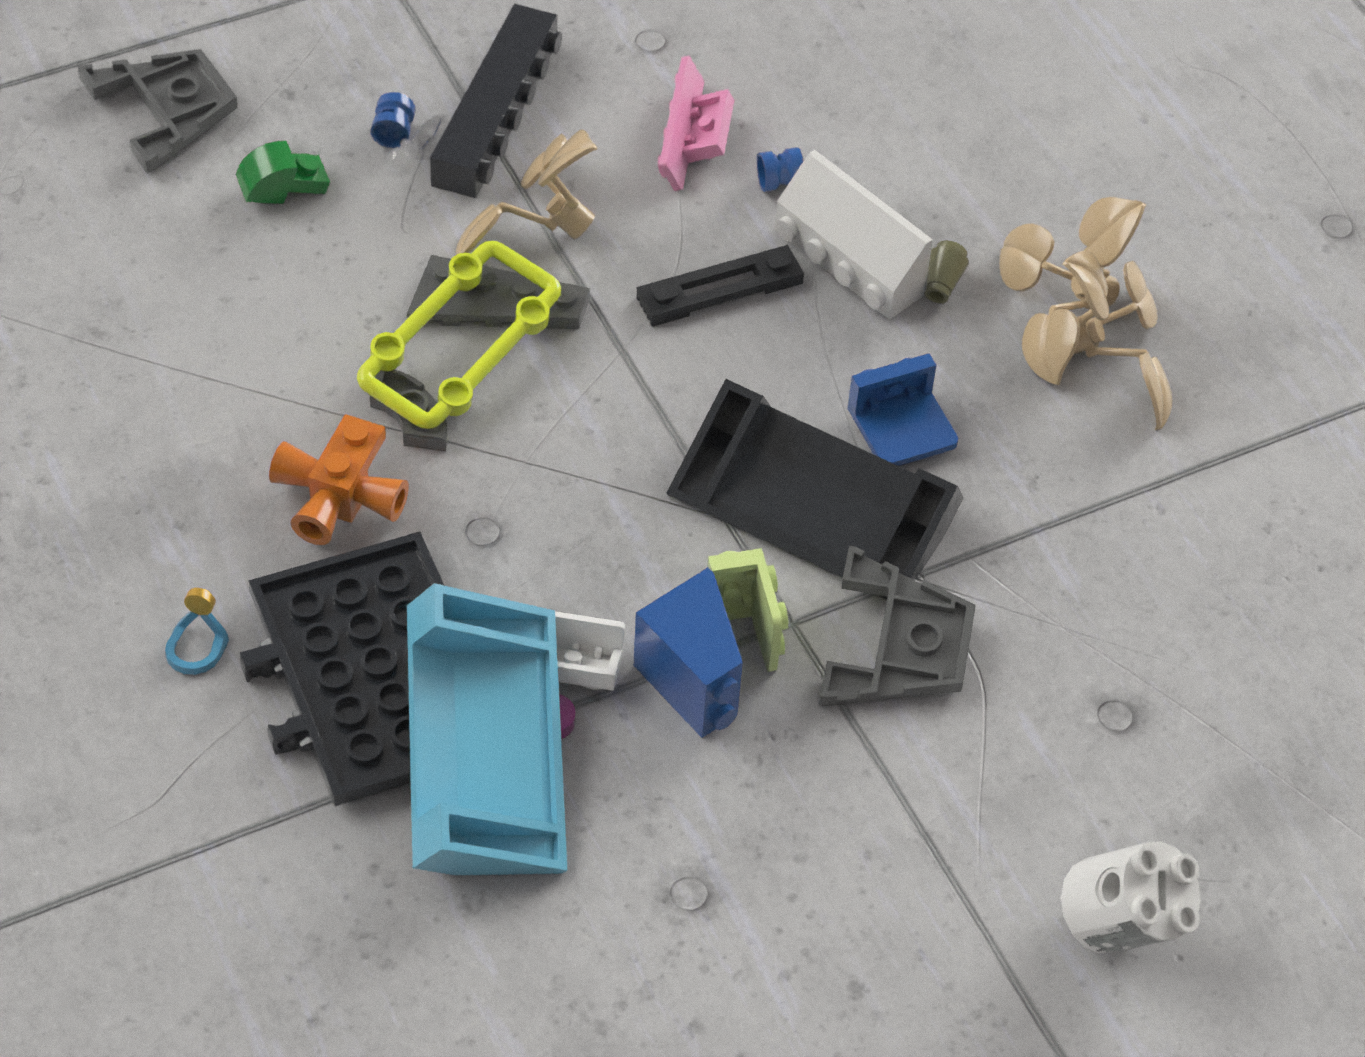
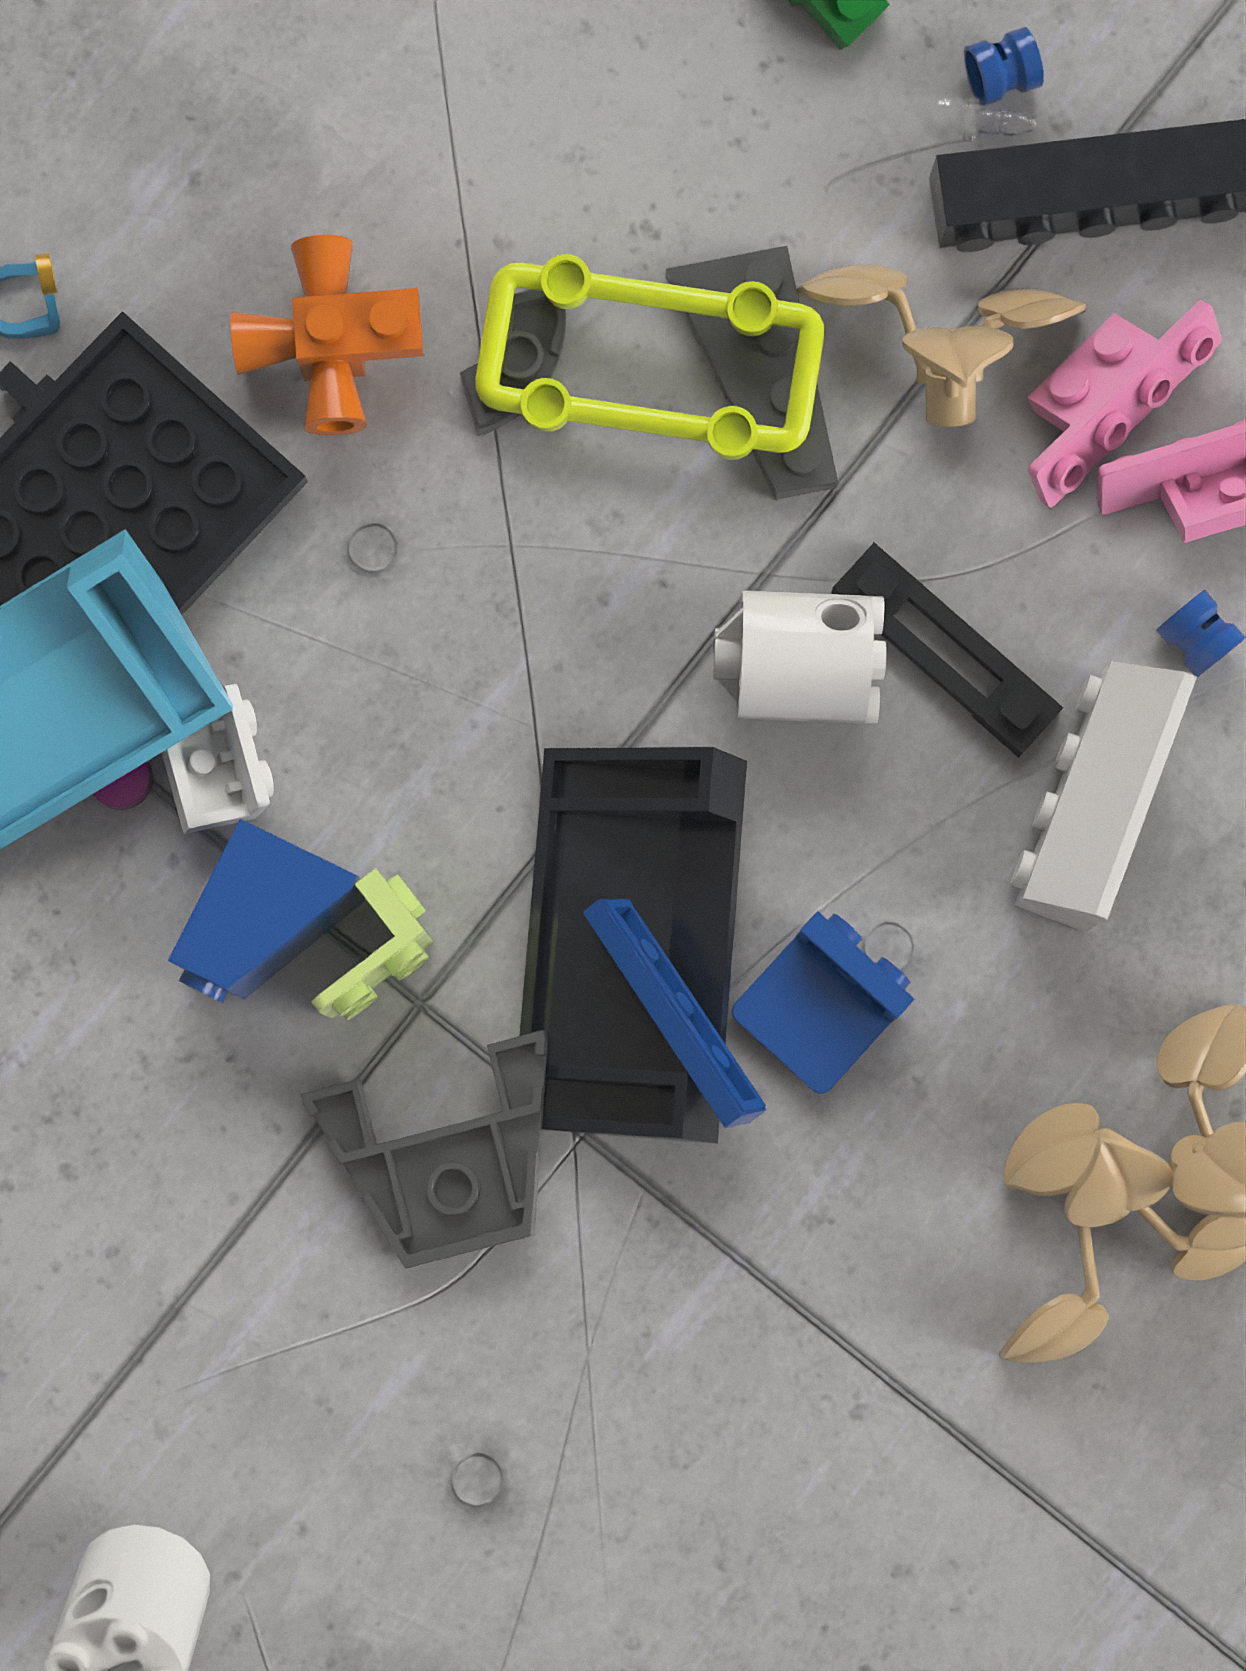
camera: 65 degrees right, 30 degrees up
(616, 154) = (1110, 389): none -> bright pink bracket
(692, 331) = (803, 657): none -> white cylinder
(872, 471) = (675, 1011): none -> blue tile
(945, 269) = (1129, 946): olive cone -> none

